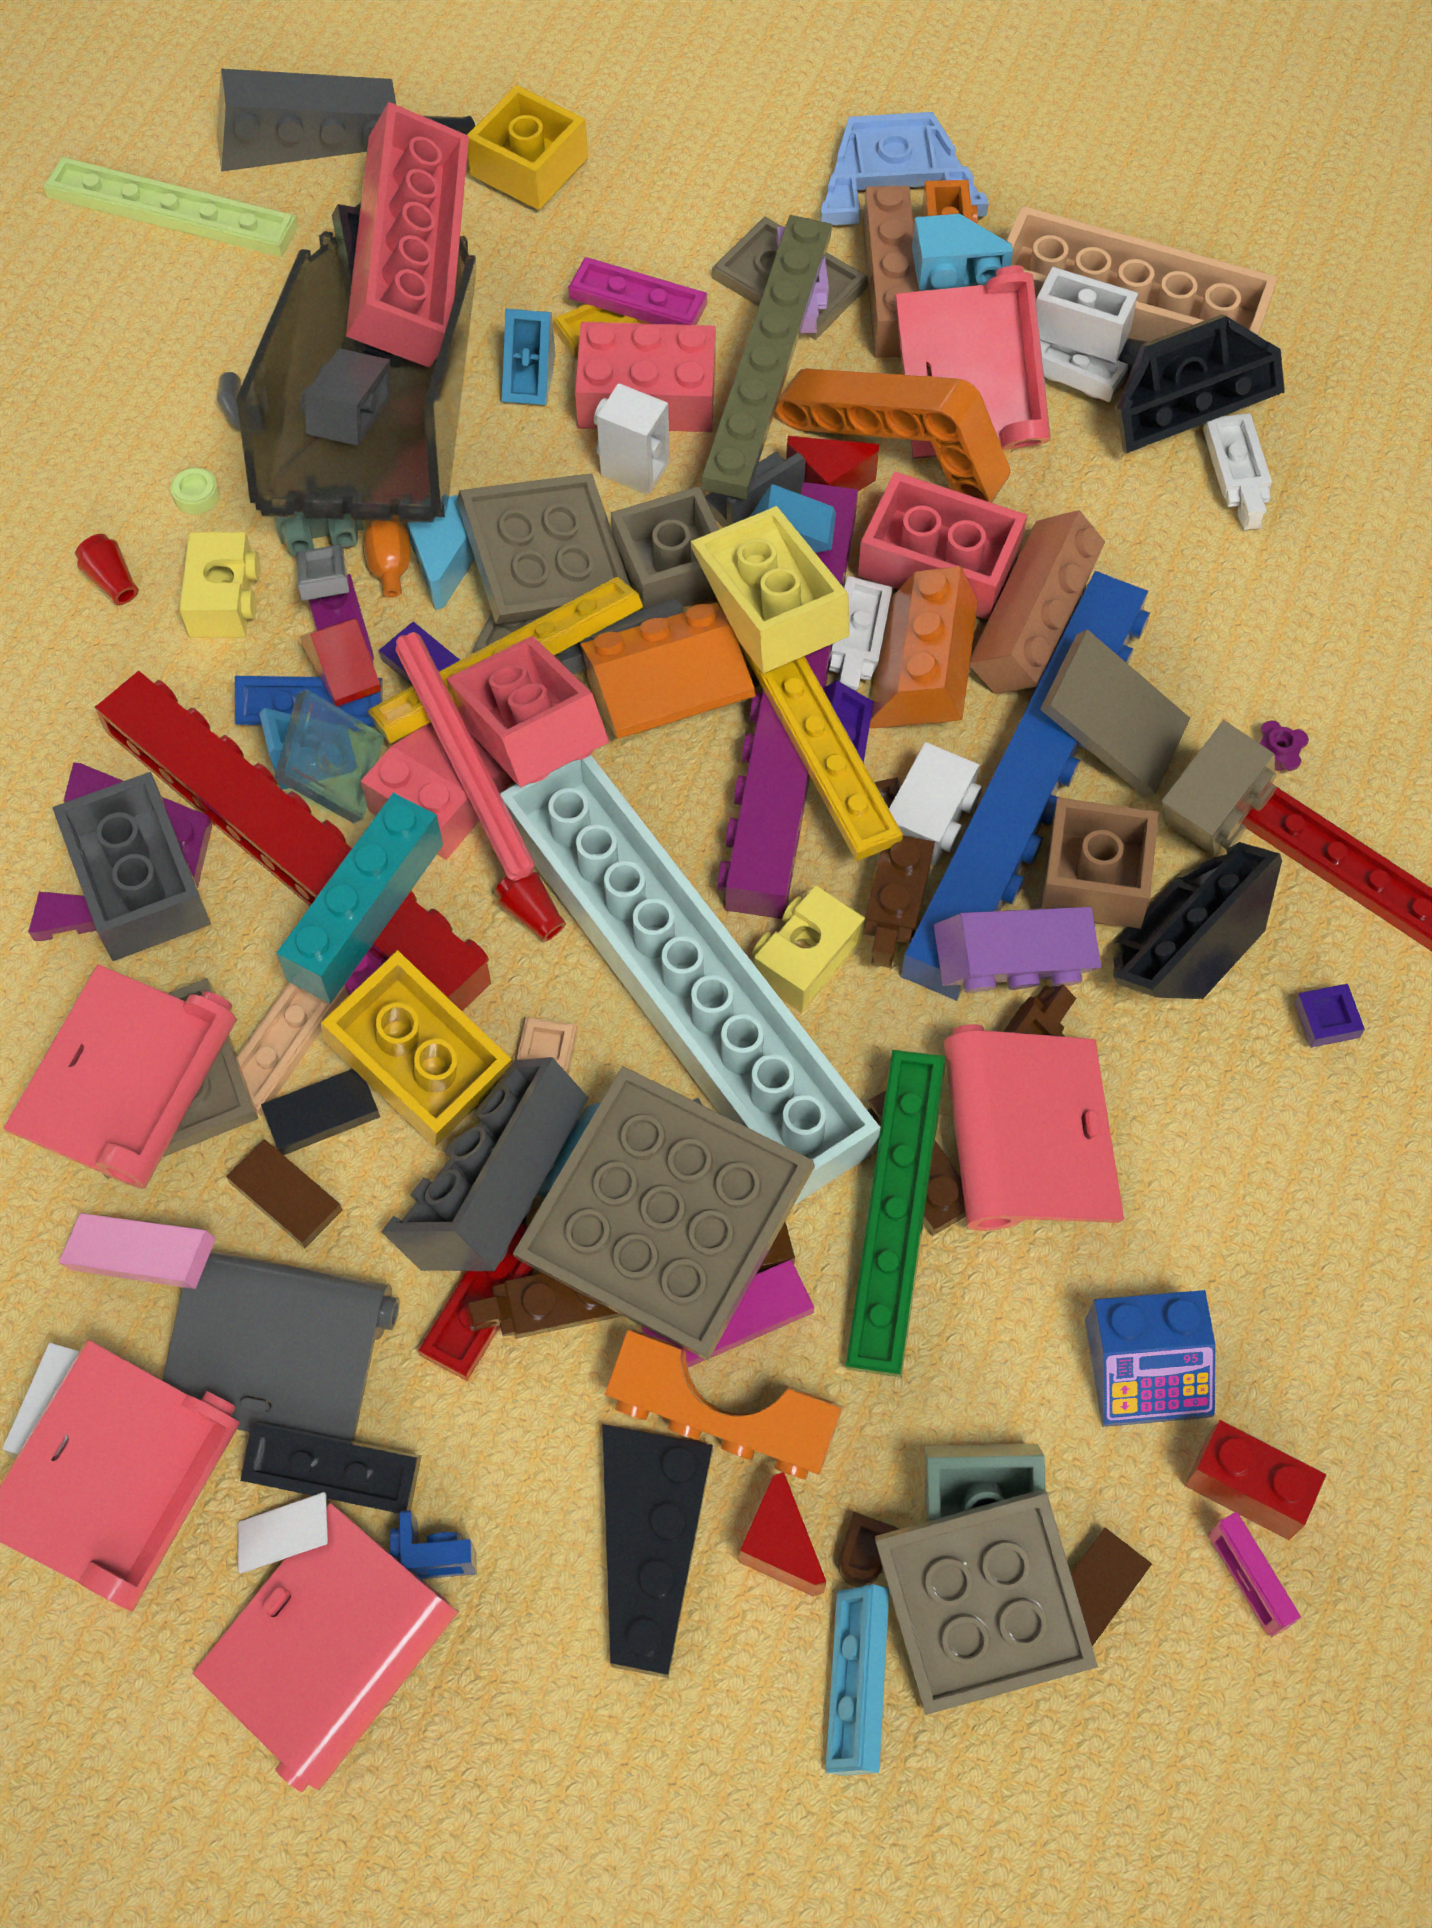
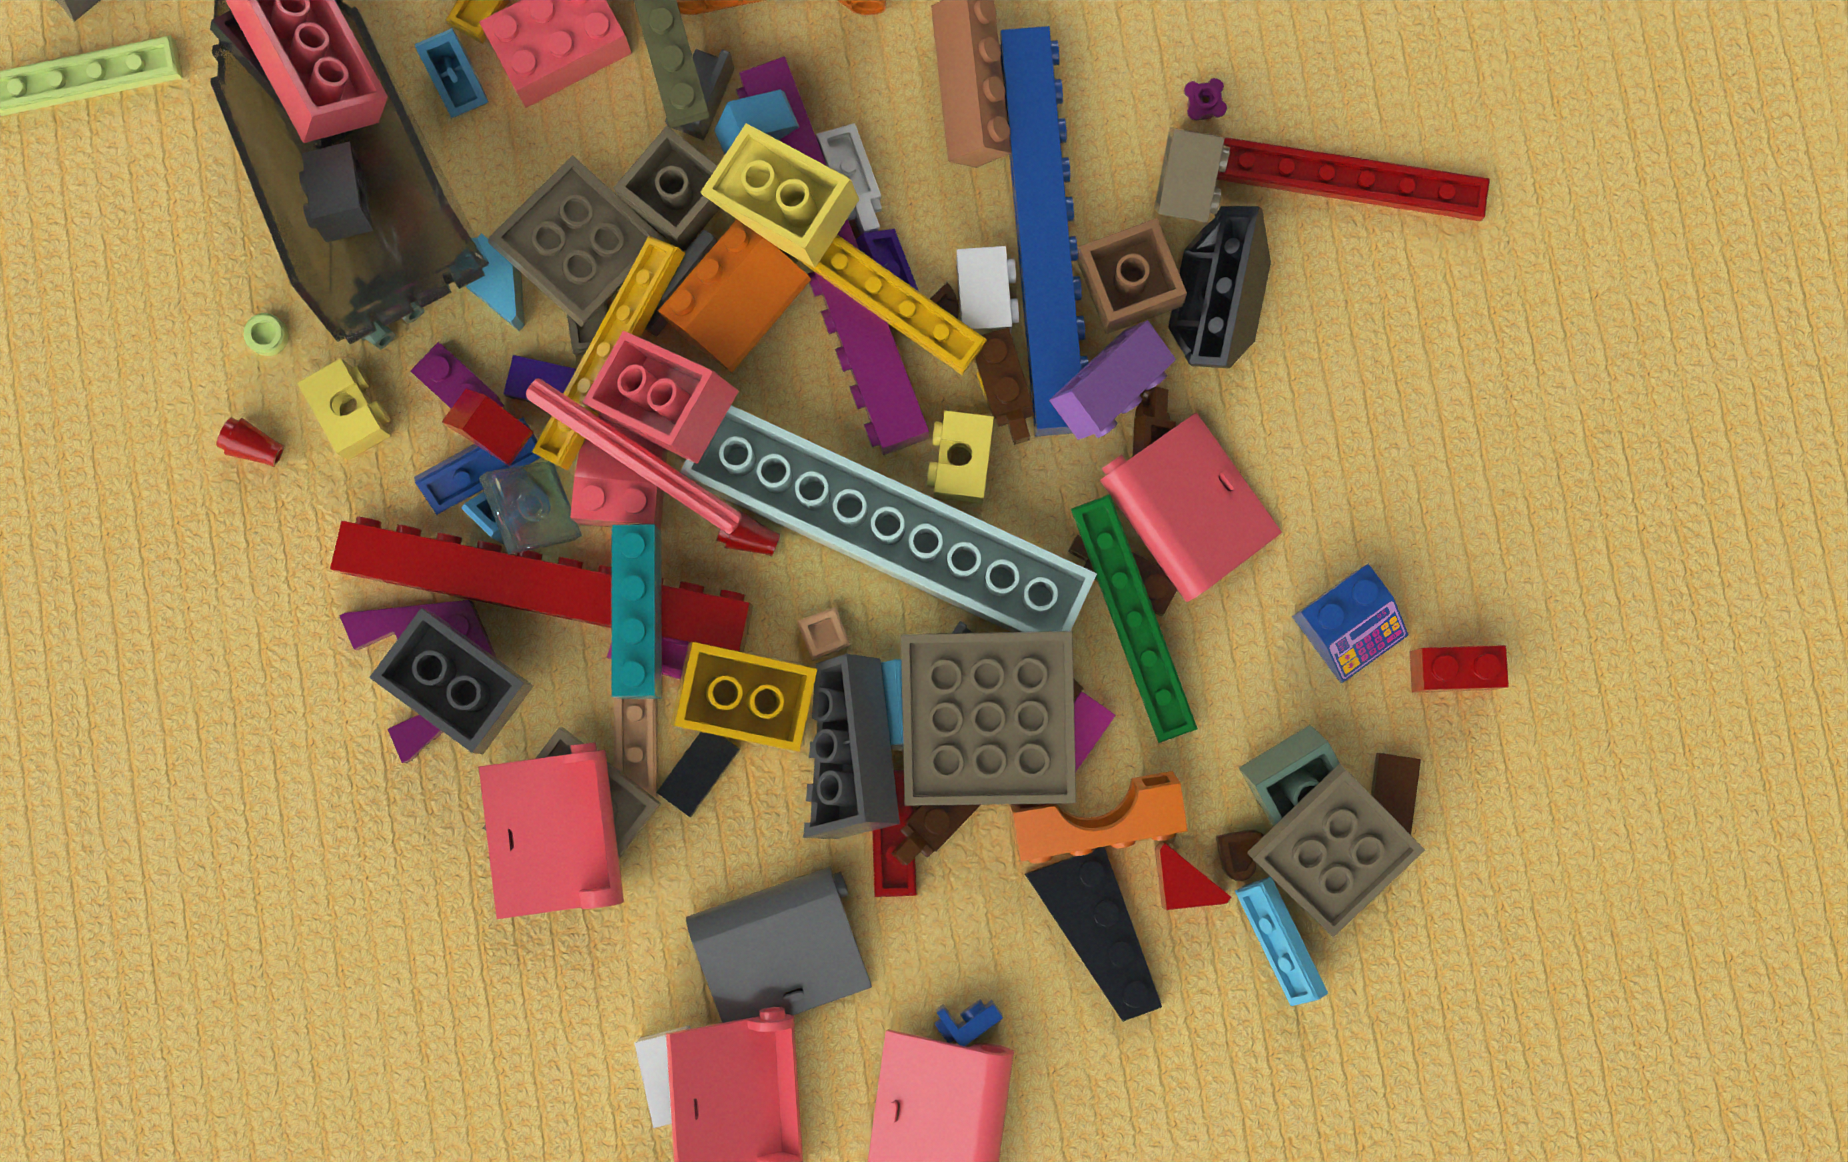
camera: 30 degrees left, 20 degrees up
(137, 1250) = (646, 945): bright pink tile -> none
(228, 389) = (237, 240): dark grey arm -> none
(282, 1533) = (865, 1066): white sticker -> none
(284, 1193) = (713, 842): reddish brown tile -> none
(322, 572) = (420, 356): light grey tile -> none
(332, 1465) = (869, 1007): black plate -> none
(387, 553) = (458, 312): orange plant -> none
(633, 438) = (584, 105): white brick -> none
(836, 461) = (748, 40): red slope -> none
(925, 650) = (912, 170): orange slope -> none
(938, 528) = (874, 68): coral brick -> none
(1115, 713) = (1079, 146): dark tan tile -> none
(1253, 1575) = (1487, 731): dark pink tile -> none
(1329, 1015) = (1344, 302): dark purple plate -> none

